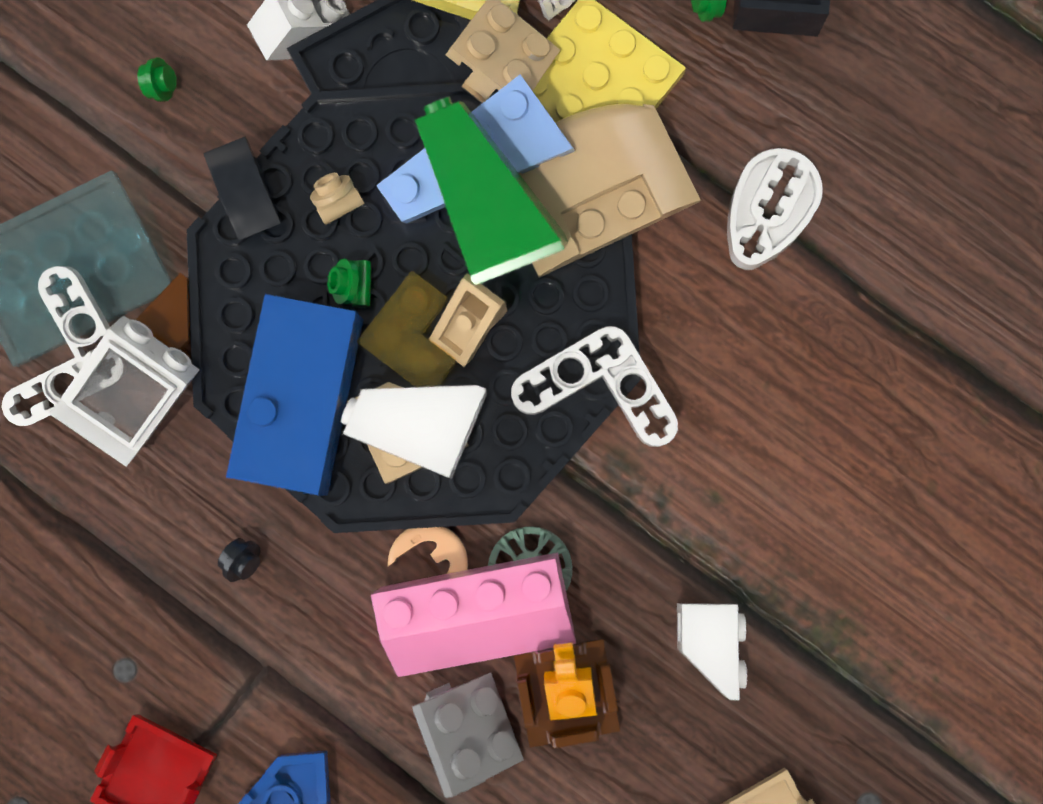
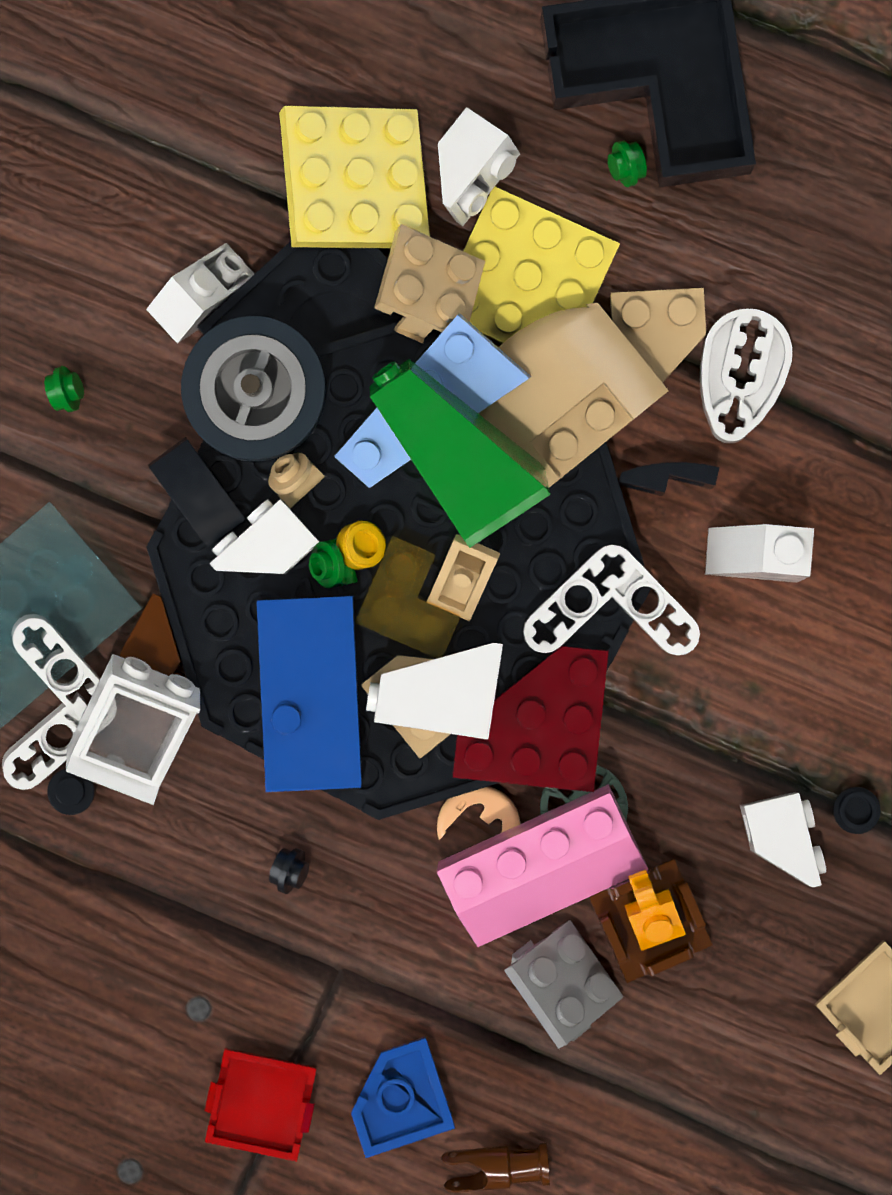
camera: 20 degrees left, 5 degrees up
(60, 441) = (70, 793): none -> black plate
(293, 250) = (269, 545): none -> white slope
(316, 102) = (253, 388): none -> wheel
(380, 272) = (361, 545): none -> yellow tile
(508, 482) = (543, 726): none -> dark red plate
(666, 278) = (654, 477): none -> black slope
(708, 146) = (661, 324): none -> tan plate
(754, 368) = (760, 552): none -> white slope
(787, 635) = (856, 810): none -> black plate

